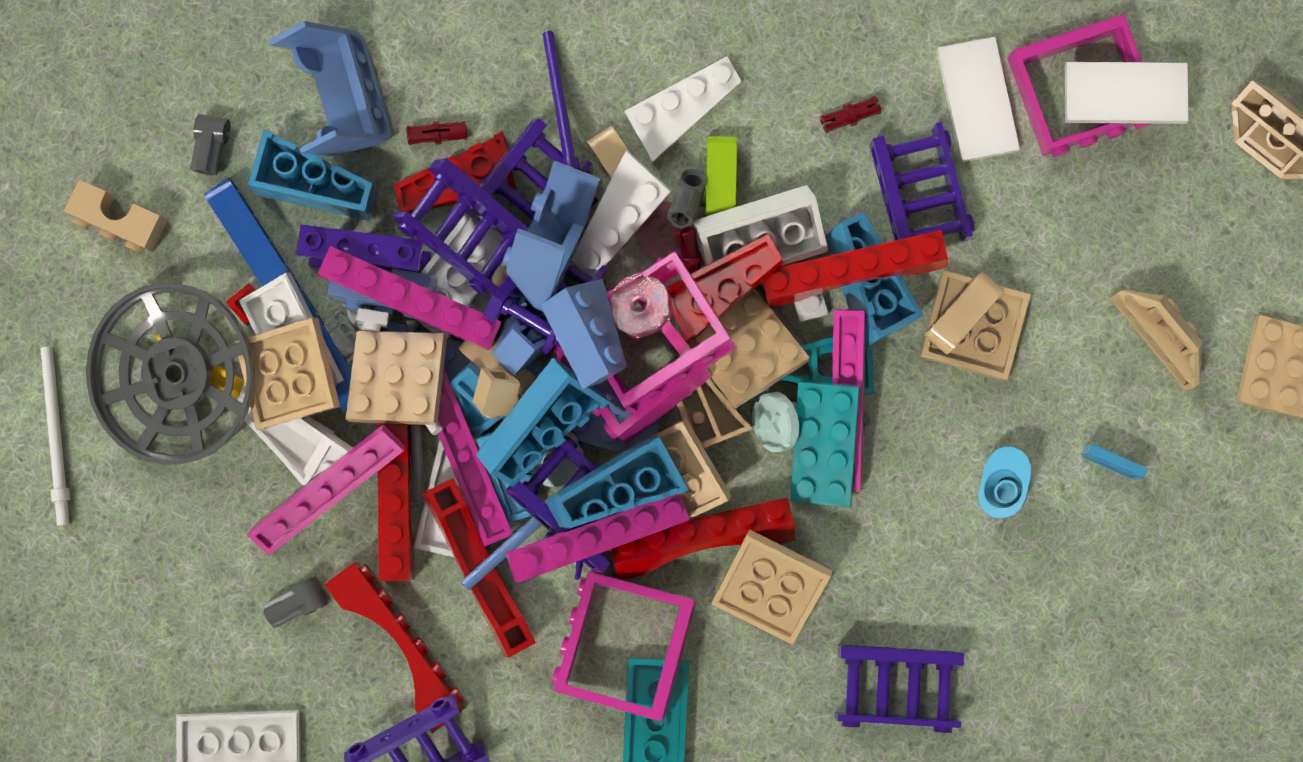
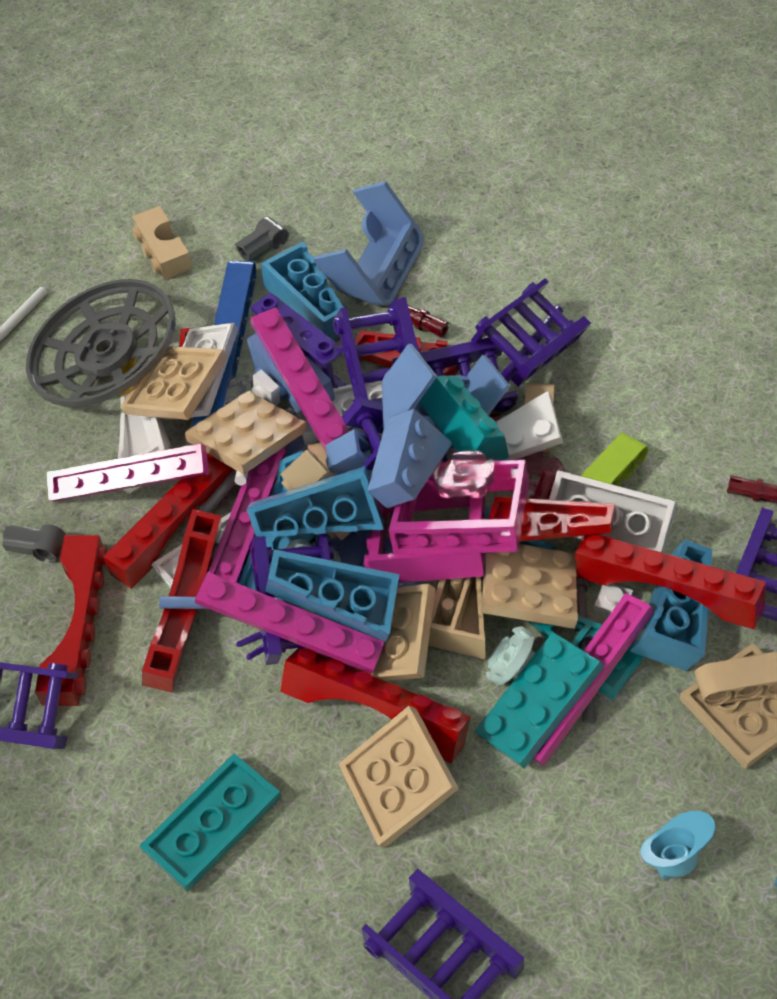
camera: 45 degrees right, 30 degrees down
(578, 618) = (261, 773): dark pink window -> none
(583, 81) = (540, 354): none -> dark purple fence
(589, 243) = (463, 419): none -> teal slope
(674, 111) = (612, 407): white wing -> none
(687, 198) = (571, 459): dark grey piece -> none

